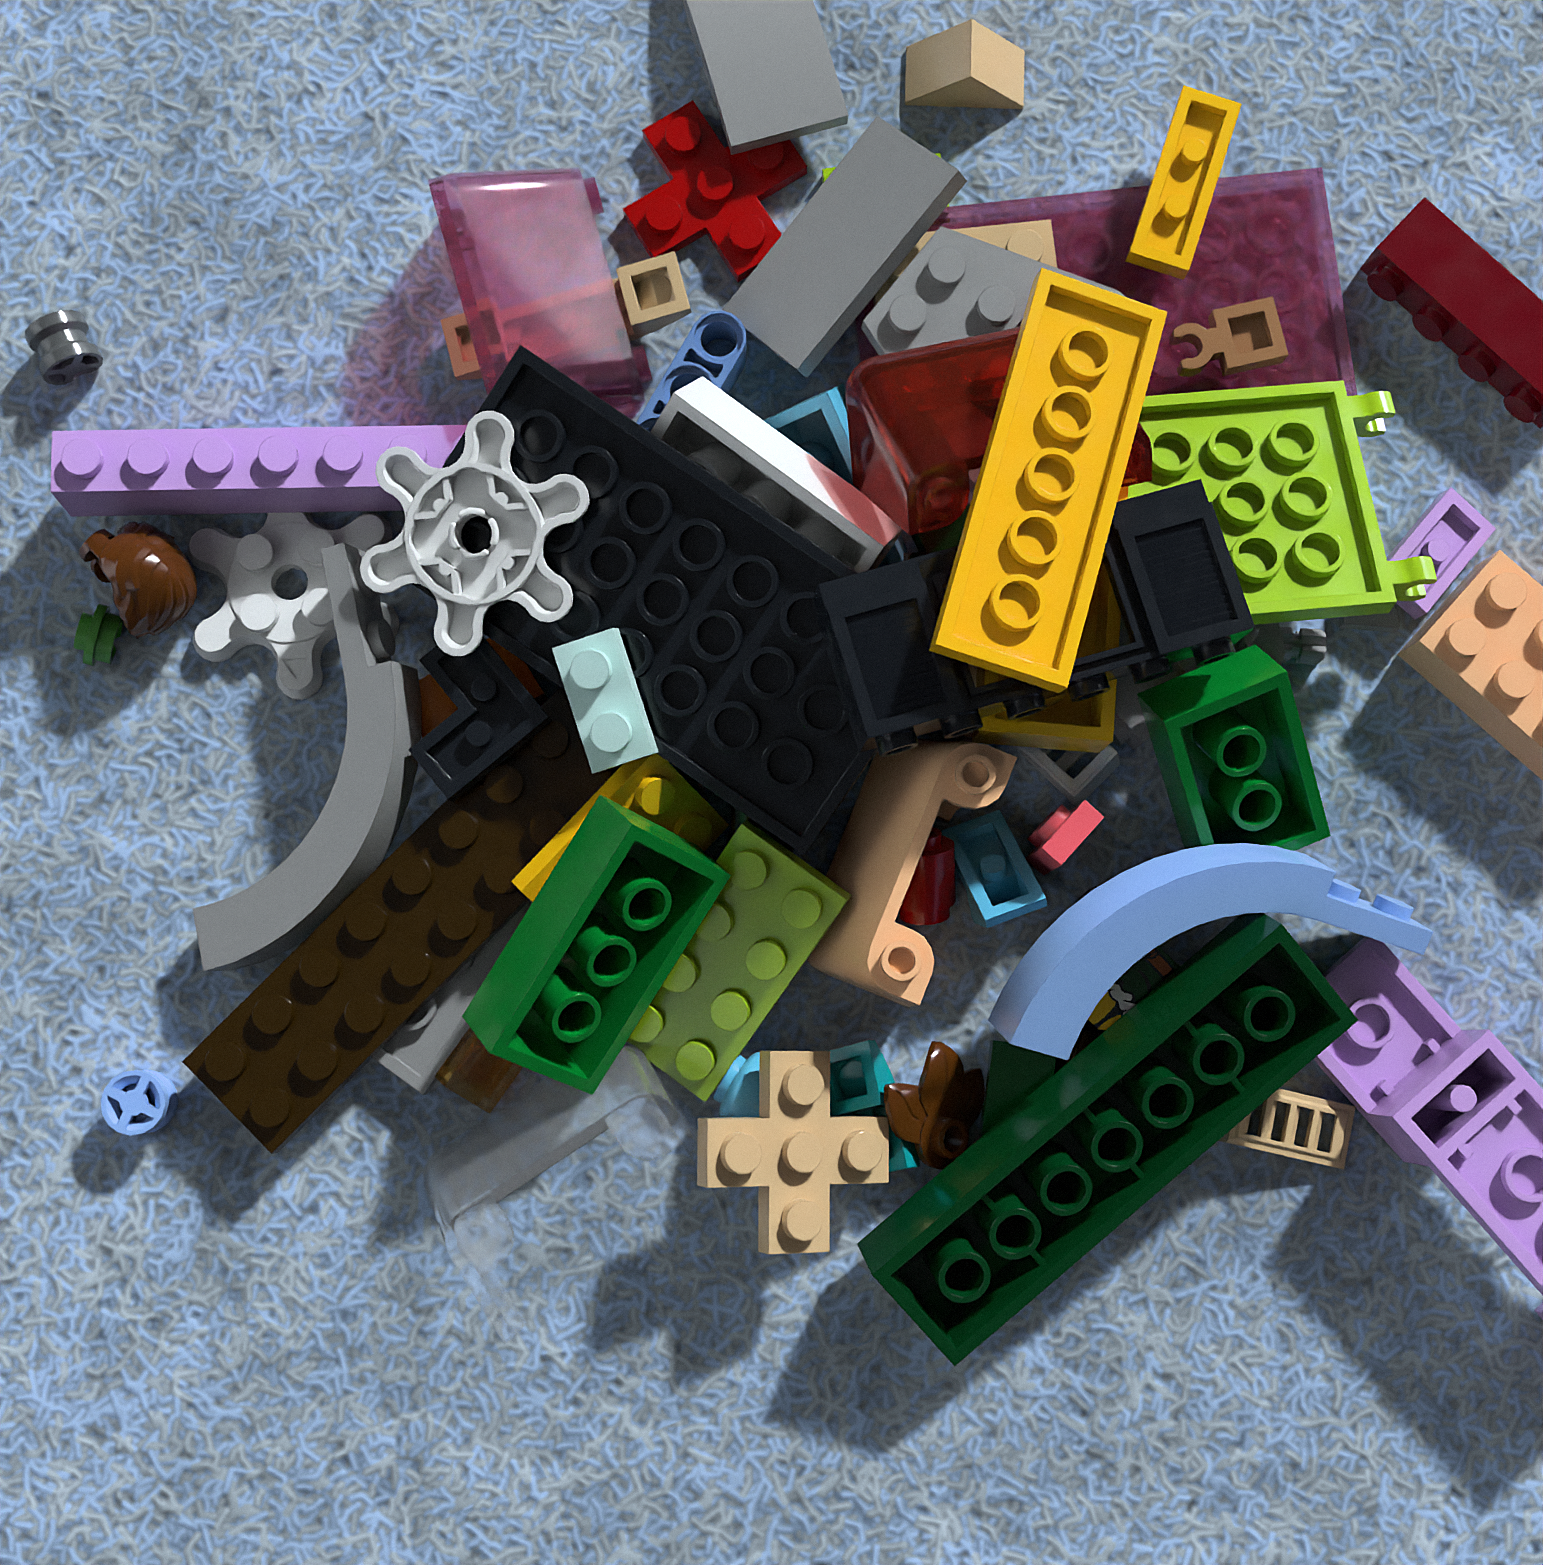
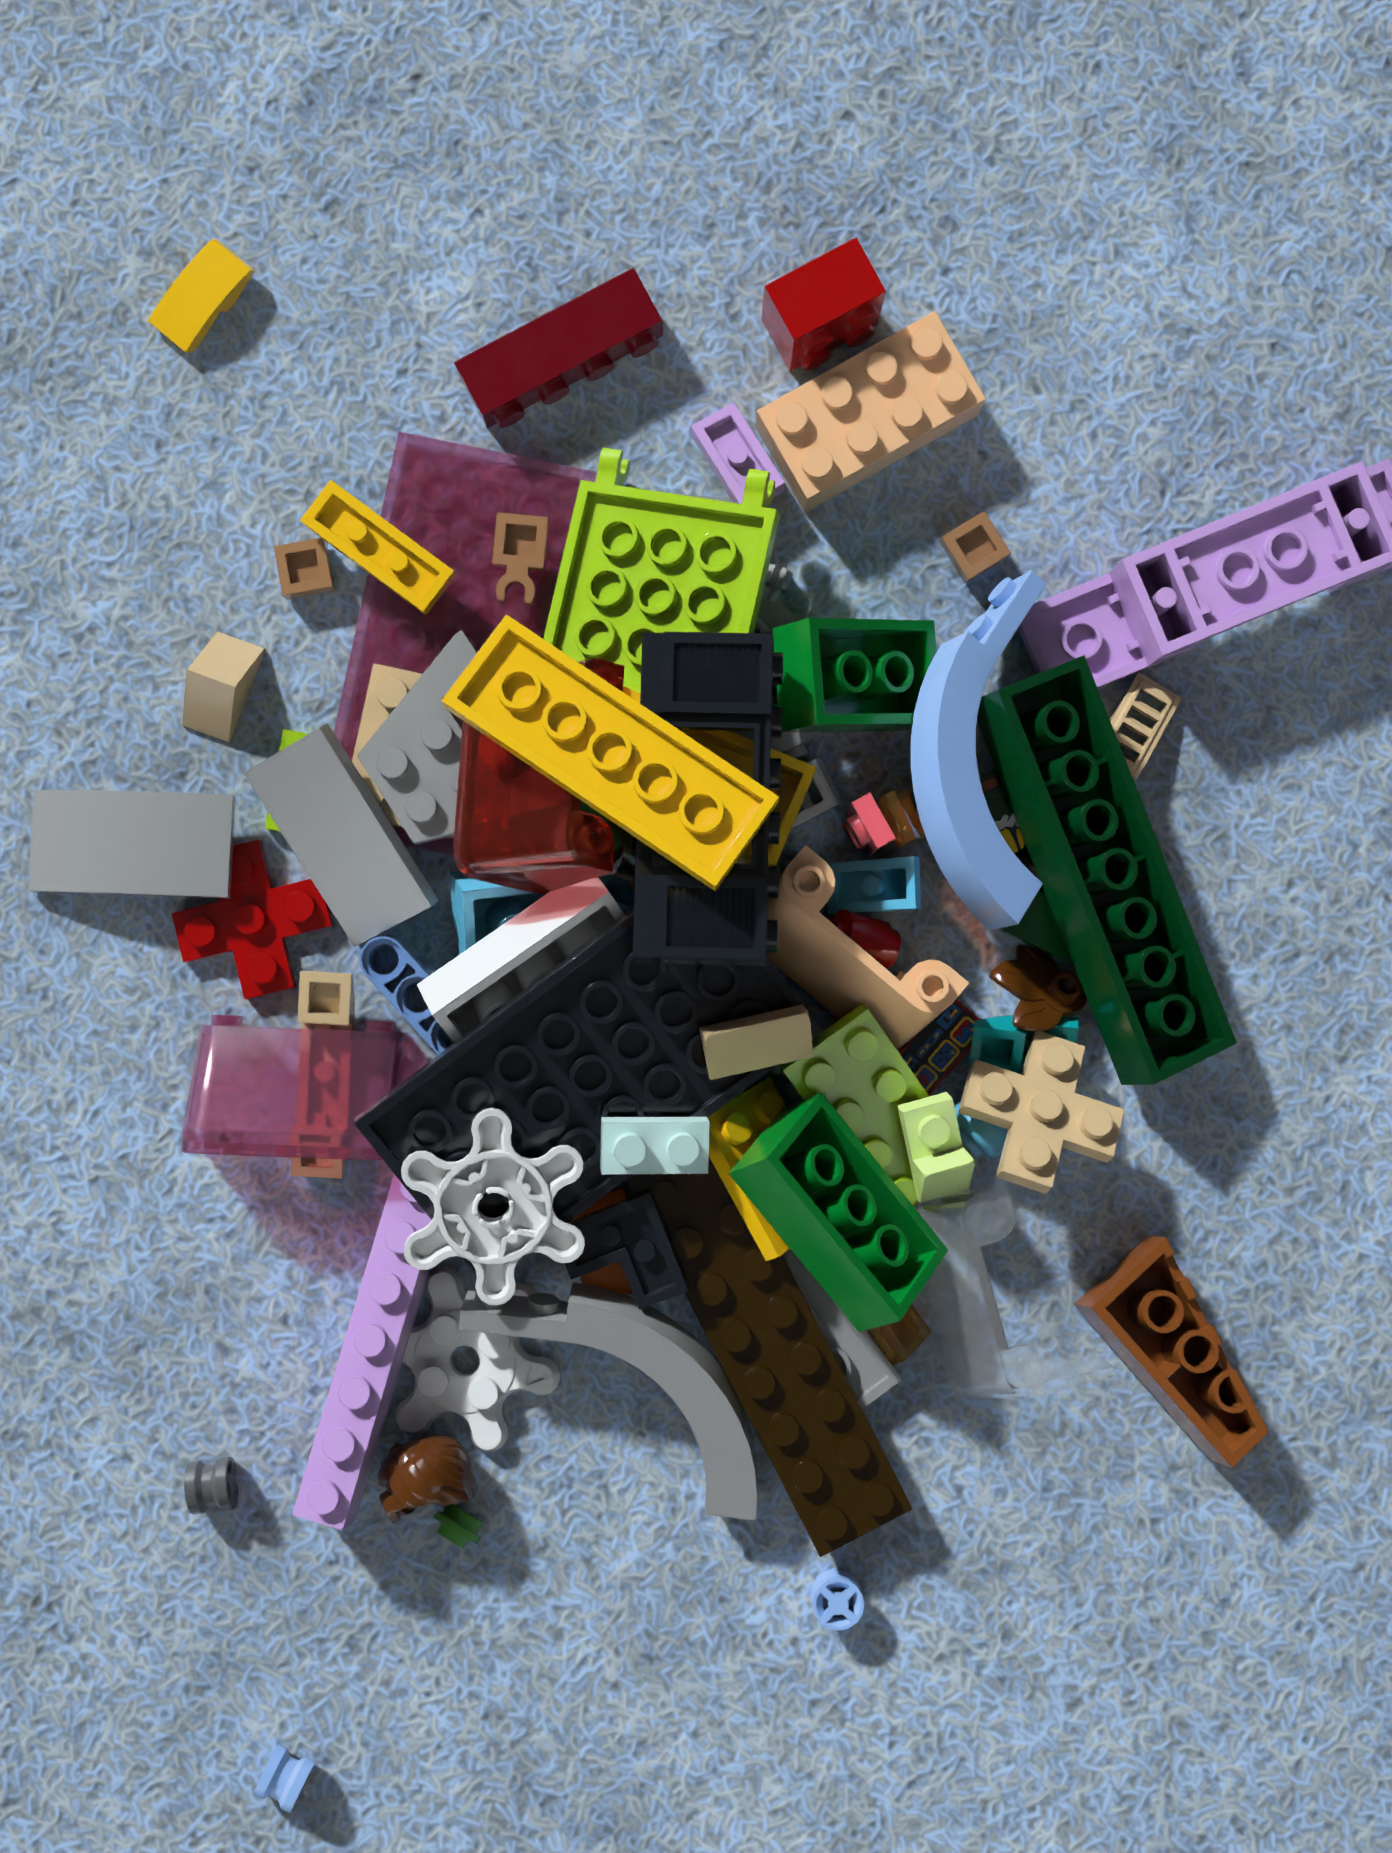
camera: 65 degrees left, 5 degrees up
(586, 1365) = (1163, 1337): none -> dark orange wedge
(709, 1038) = (935, 1147): none -> yellowish green slope
(764, 778) = (757, 1041): none -> tan slope
(831, 1010) = (940, 1046): none -> tile
(1084, 871) = (901, 817): none -> clear orange slope
(1129, 118) = (304, 568): none -> medium nougat plate
(1432, 862) = (975, 547): none -> medium nougat plate

